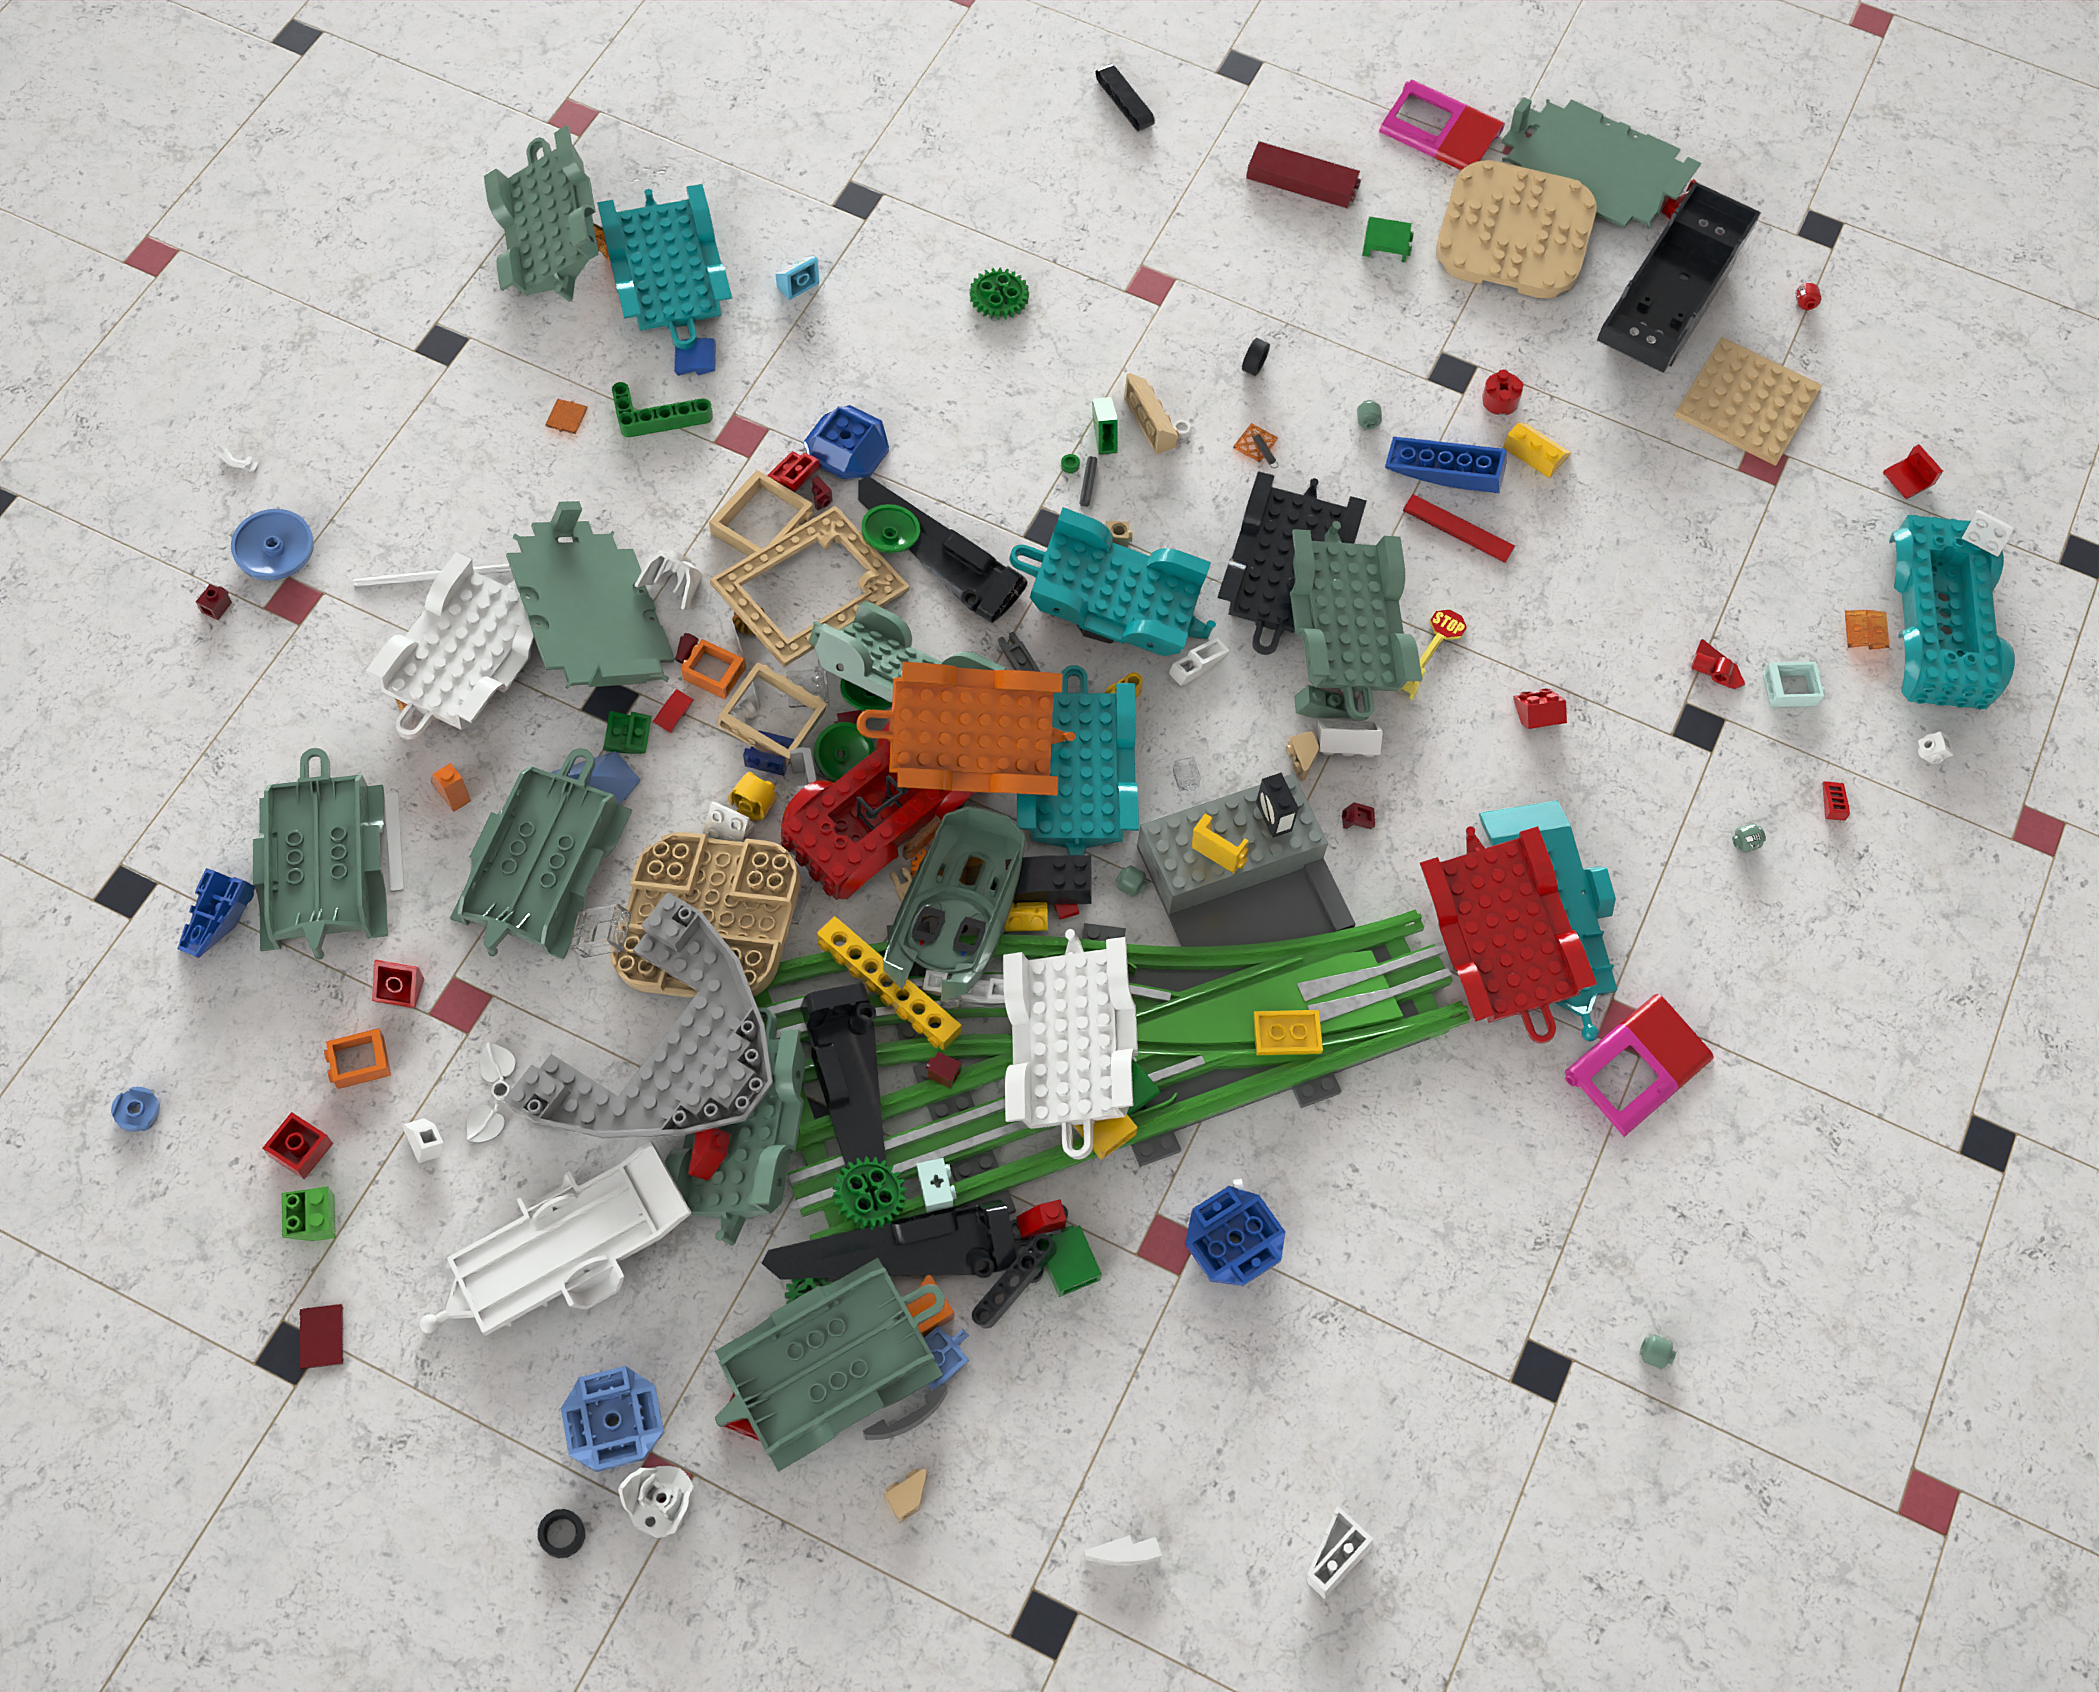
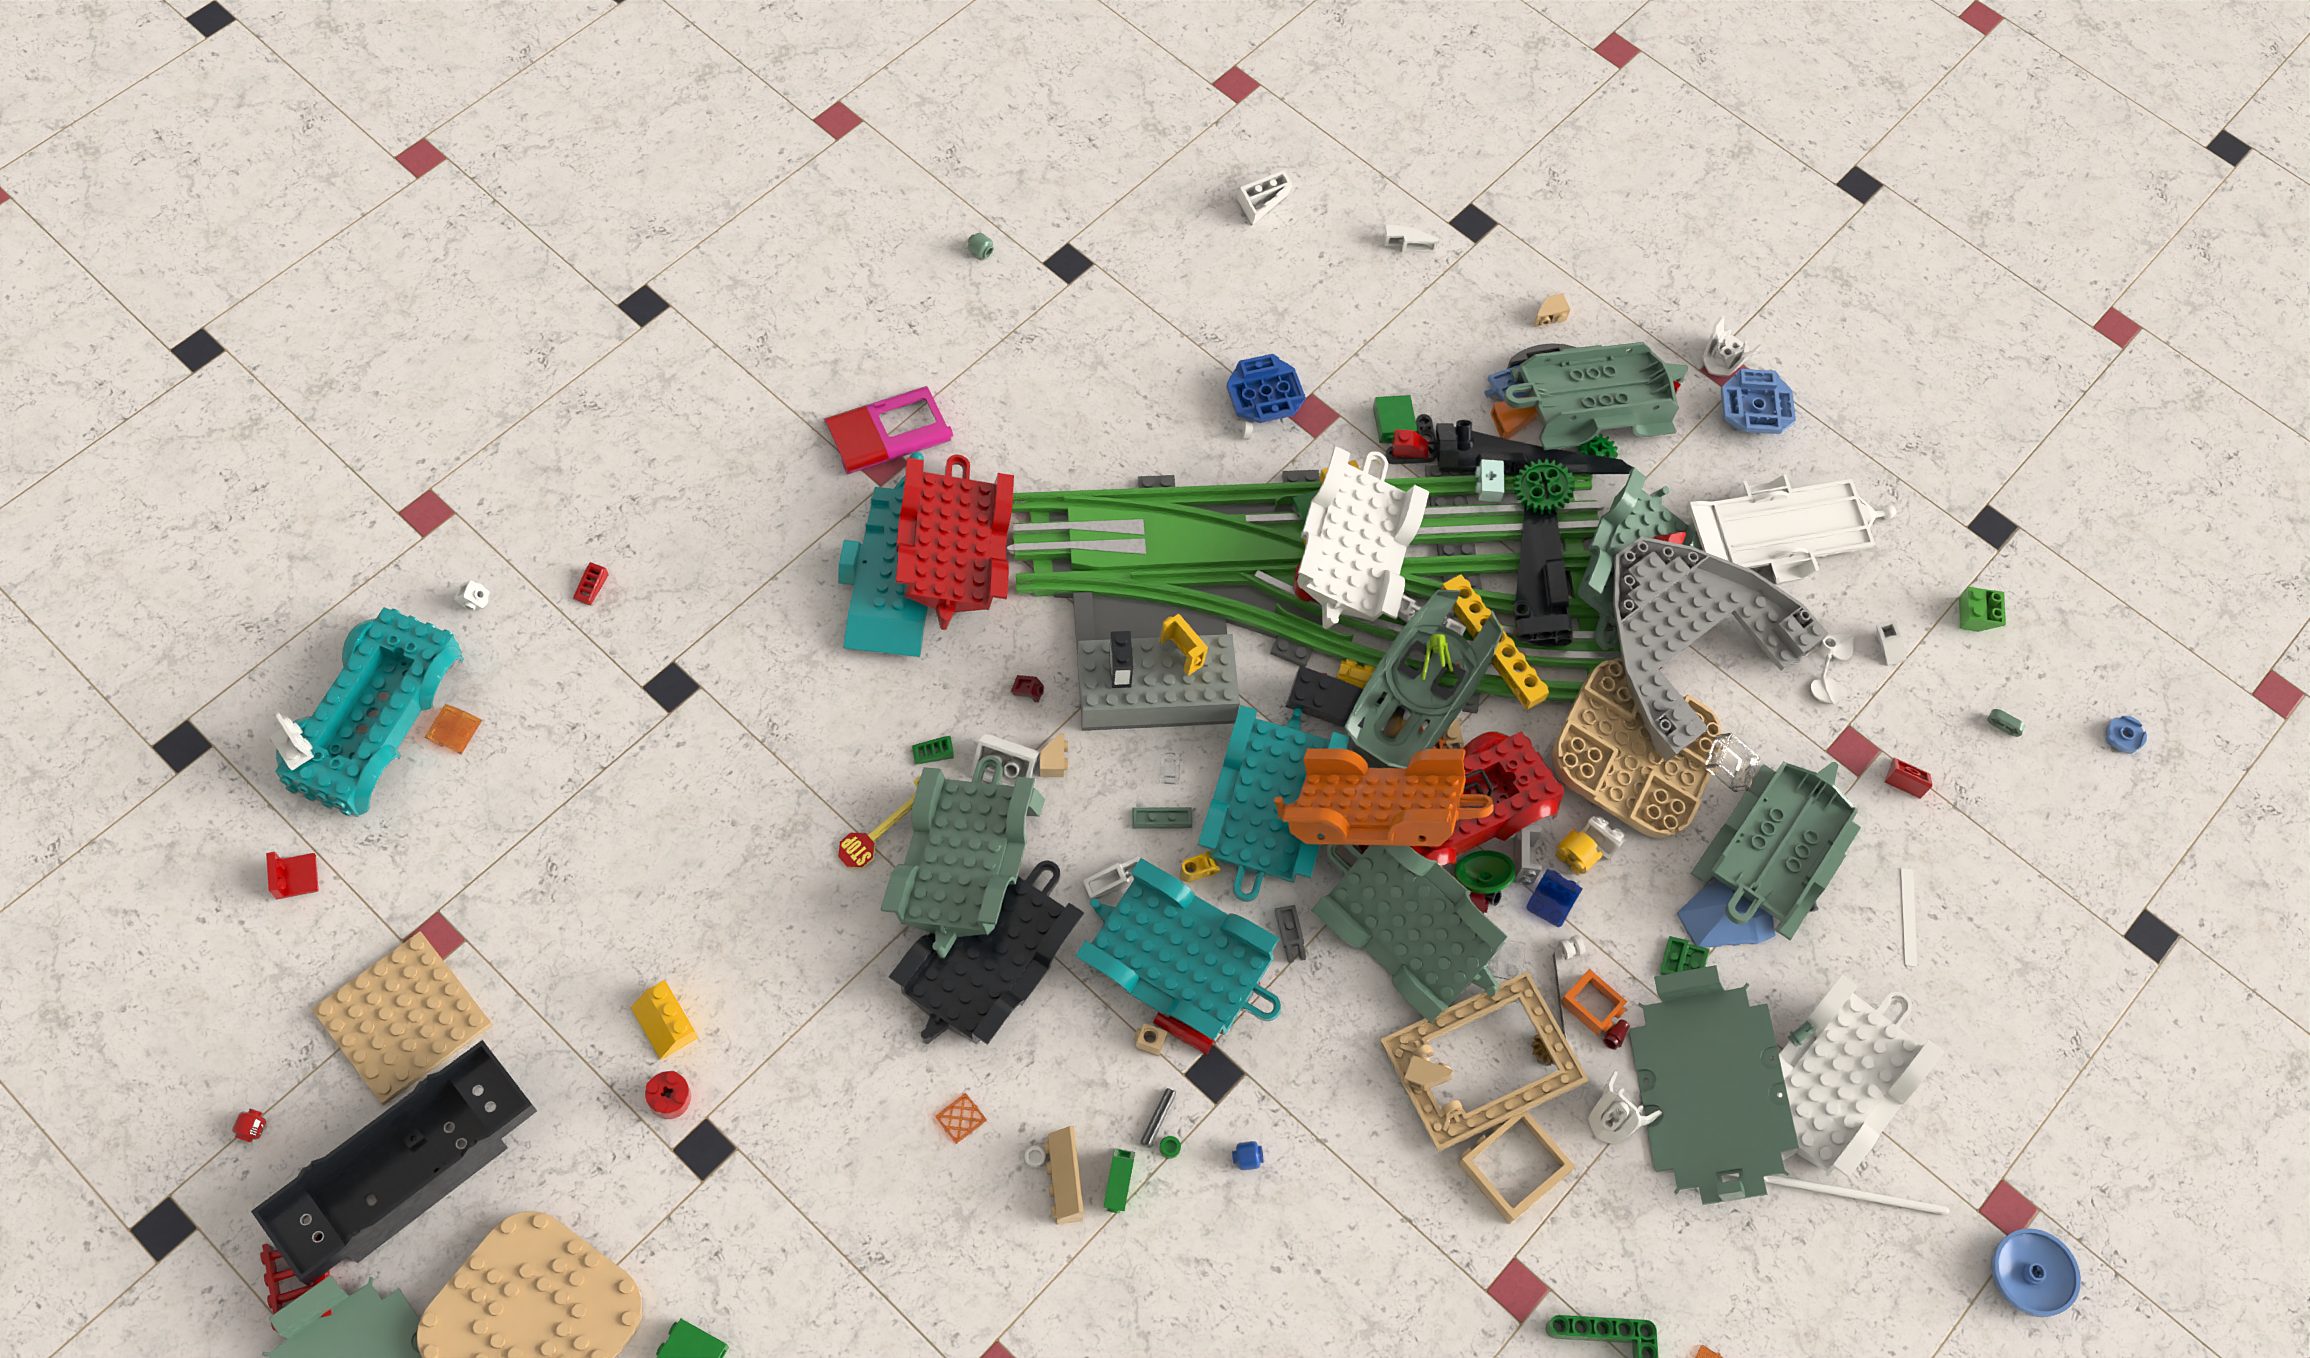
camera: 165 degrees left, 0 degrees up
(214, 601) = (2092, 1222): dark red brick -> none
(216, 911) = (2070, 881): blue wedge -> none
(281, 1080) = (2006, 722): none -> sand green beam
(297, 1145) = (1992, 662): red brick -> none
(319, 858) = (1979, 904): sand green piece -> none
(321, 1336) = (1969, 530): dark red piece -> none
(363, 1075) = (1925, 726): orange window -> none
(451, 787) = (1860, 942): orange slope -> none
(511, 668) = (1801, 1033): none -> sand green pin
(546, 1523) = (1805, 348): black tyre -> none
(673, 710) = (1638, 968): red slope -> none
(754, 737) = (1565, 902): tan window -> none
(795, 470) = (1472, 1212): red brick -> none
(822, 493) = (1447, 1183): dark red bracket -> none
(848, 443) = (1403, 1260): blue piece -> none
(860, 554) = (1426, 1074): none -> tan slope
(890, 528) = (1390, 1092): green dish -> none
(943, 1069) = (1463, 561): dark red brick -> none
(950, 945) = (1438, 645): none -> lime plant
(954, 559) = (1325, 1058): black panel -> none
(1001, 467) = (1248, 1155): none -> blue head
(1003, 1286) = (1443, 409): black beam -> none
(1131, 881) = (1253, 685): sand green head -> none
(1176, 731) = (1162, 817): none -> sand green tile
(1255, 356) = (921, 1216): black tyre -> none
(1264, 449) = (957, 1100): dark grey piece -> none
(1287, 1032) = (1171, 512): yellow plate -> none
(1369, 414) = (825, 1111): sand green head -> none
(1411, 741) = (941, 755): none -> green slope
(1448, 463) = (772, 1024): blue slope -> none
(1459, 528) = (794, 952): red tile -> none
(1540, 708) = (812, 738): red slope -> none
(1720, 668) = (621, 736): red panel -> none
(1749, 837) = (690, 570): sand green head -> none
(1790, 669) = (578, 701): light aqua window -> none

